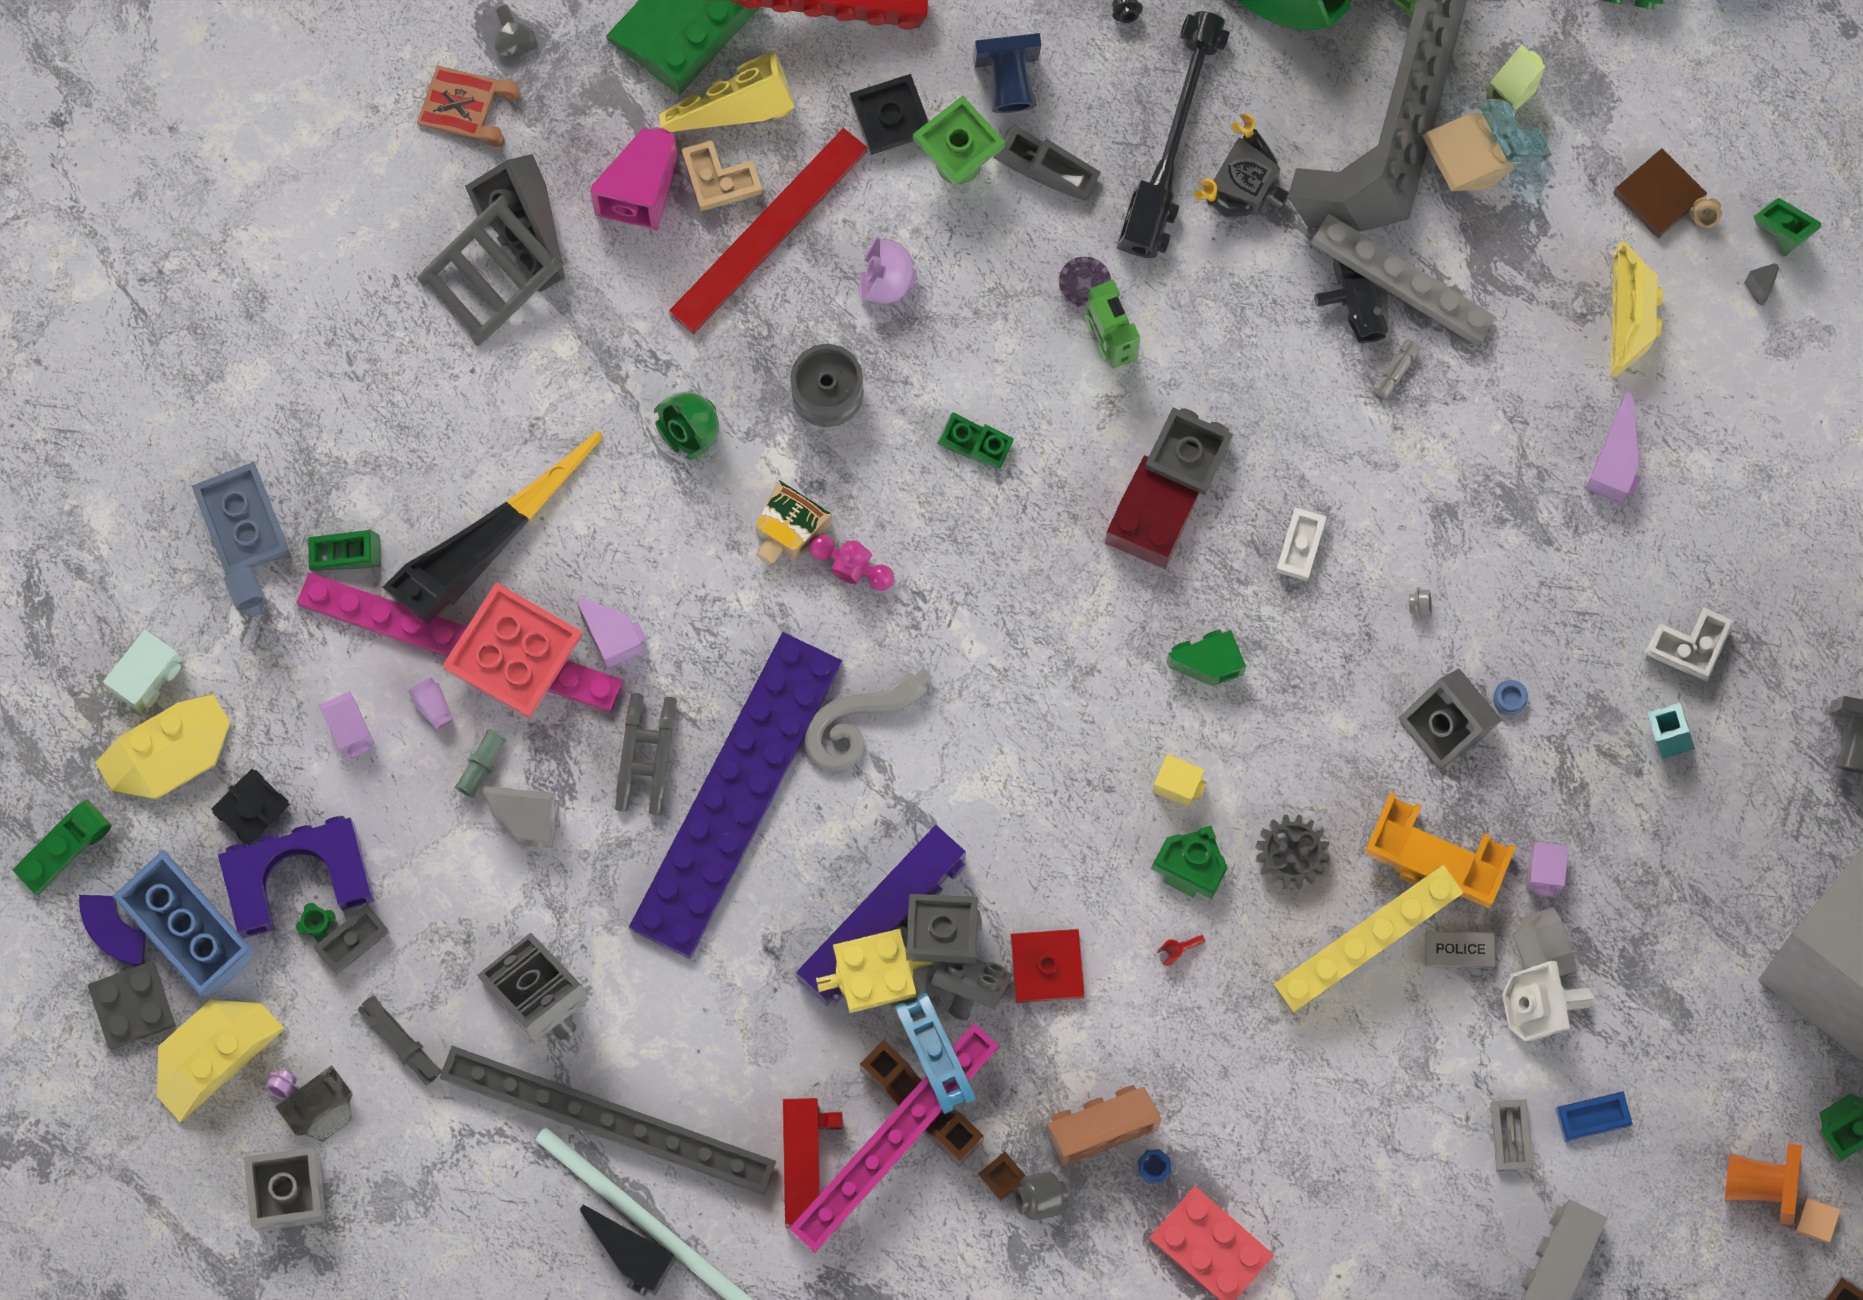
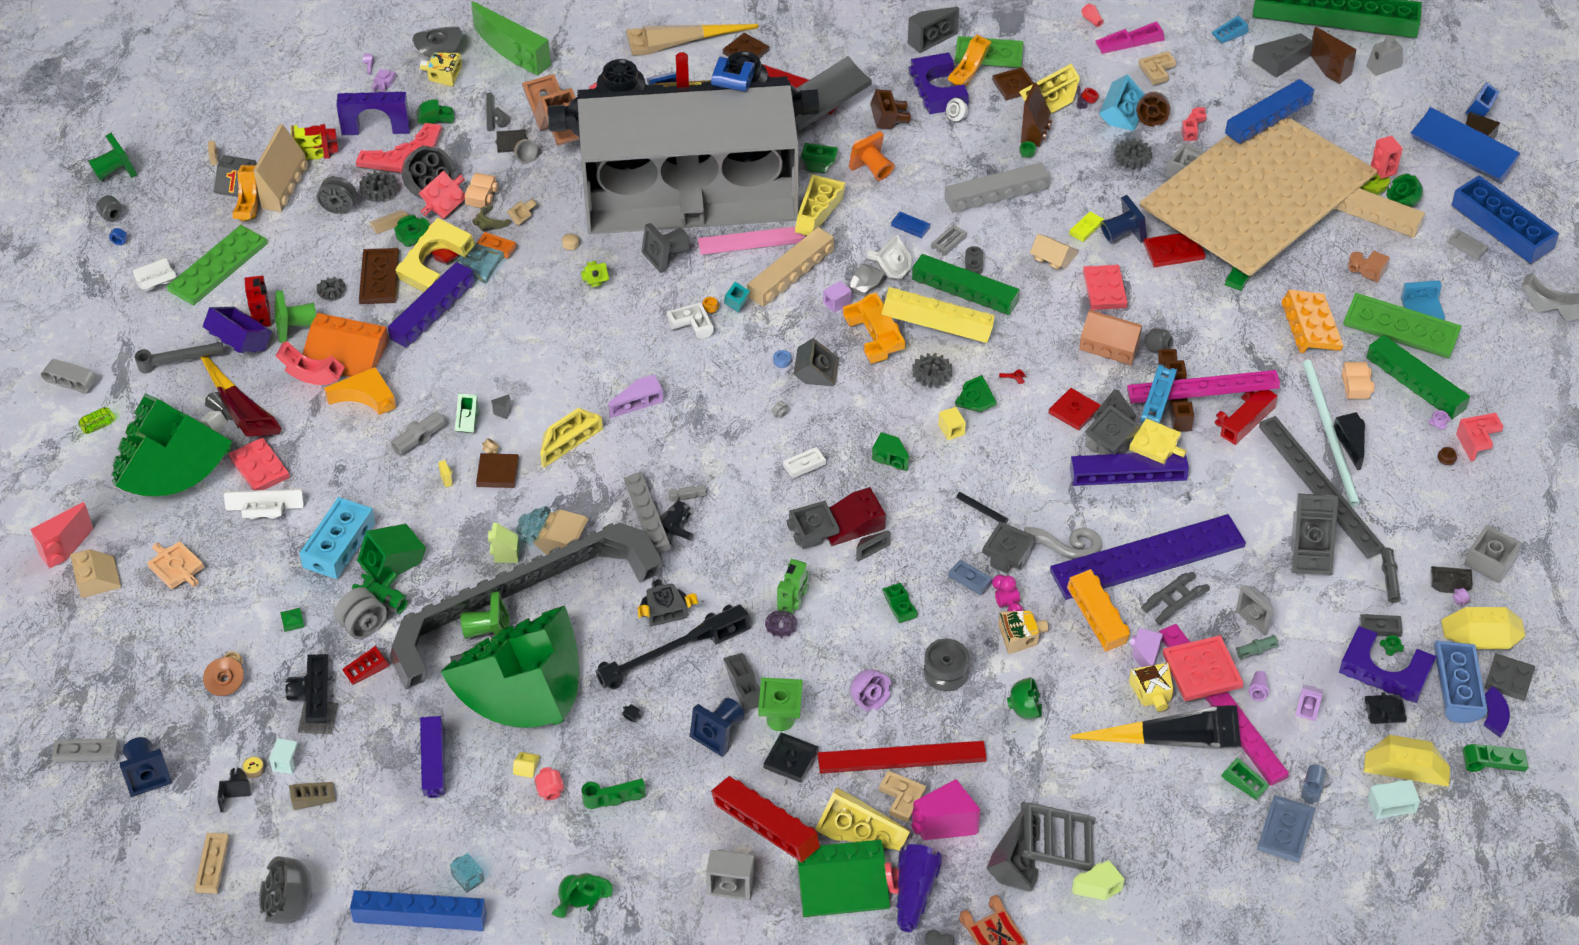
camera: 135 degrees left, 25 degrees down
(396, 257) = (1099, 882): none -> yellowish green slope
(558, 582) = (1152, 685): none -> light yellow torso
(601, 79) = (916, 877): none -> dark purple cone
(622, 61) = (892, 876): none -> coral piece
(716, 631) = (1098, 610): none -> light orange brick
(914, 631) = (1008, 547): none -> dark grey panel
(924, 552) = (970, 577): none -> sand blue plate
(1013, 682) = (982, 508): none -> black bar
(1096, 492) = (872, 544): none -> dark grey slope
(1341, 1246) = (1052, 251): none -> tan slope
(1400, 1057) = (965, 284): none -> green brick
(1435, 1127) = (974, 259): none -> dark grey plate
(1665, 866) = (790, 266): none -> tan brick
(1703, 691) = (710, 304): none -> light orange plate
(1710, 123) = (445, 473): none -> light yellow tile
(1748, 1009) = (818, 203): none -> light yellow wedge
(1775, 874) = (749, 240): none -> bright pink tile
(1815, 150) = (417, 433): none -> light grey piece

